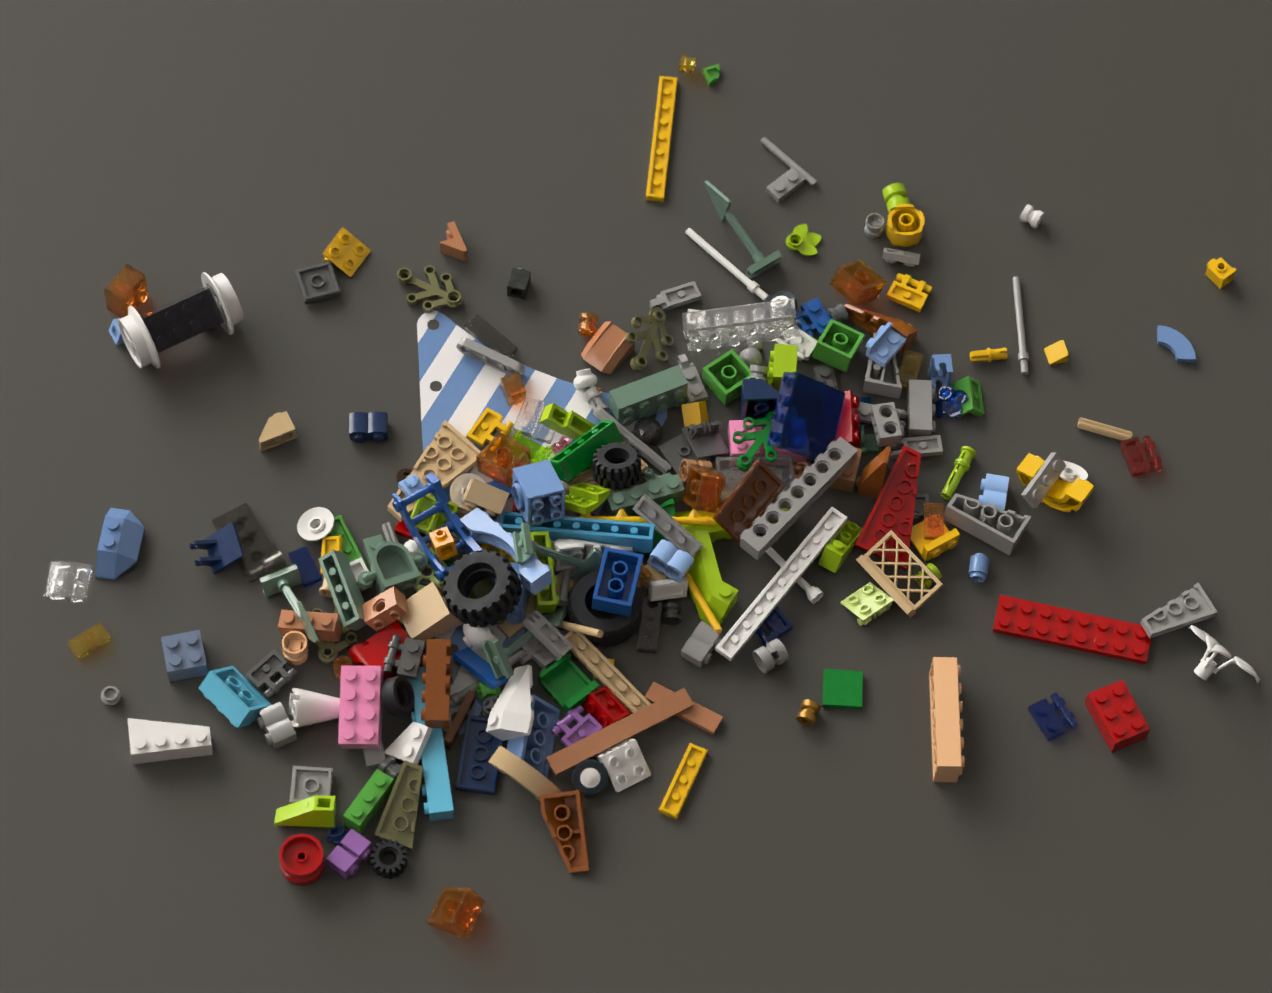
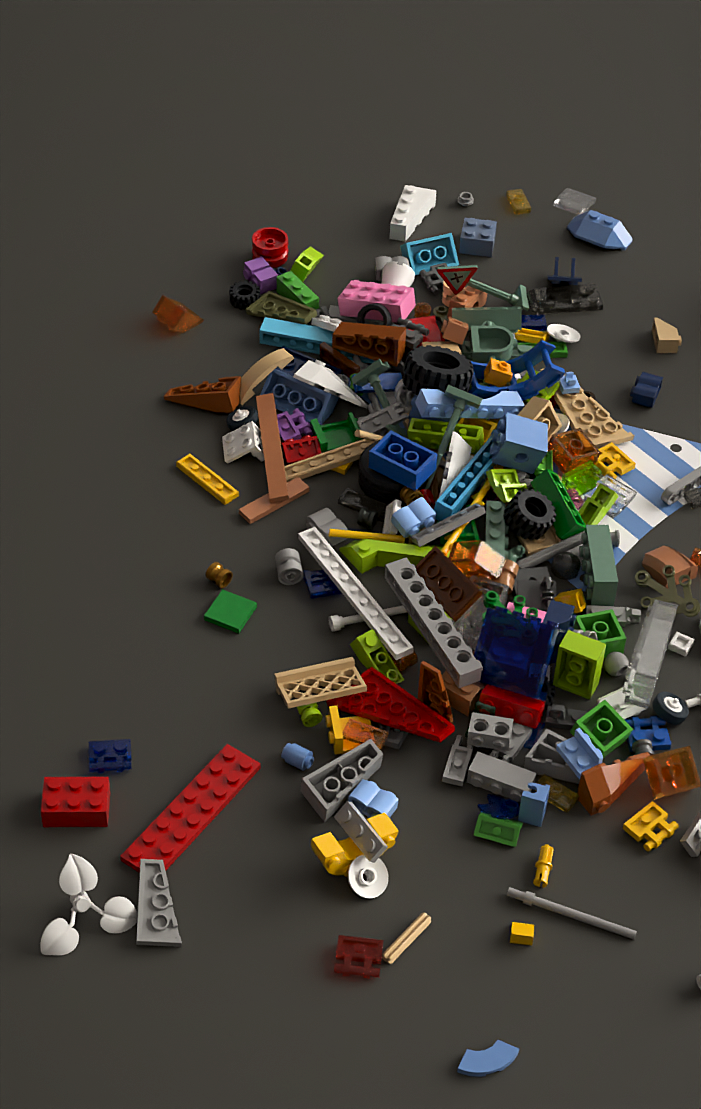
camera: 115 degrees right, 15 degrees down
(310, 782) = (330, 273): light grey plate -> none
(513, 389) = (648, 486): clear orange brick -> none
(586, 379) = (638, 537): white animal -> none
(867, 603) = (304, 653): yellowish green hinge -> none
(945, 719) = (150, 659): light nougat brick -> none
(961, 466) = (419, 788): lime pin -> none

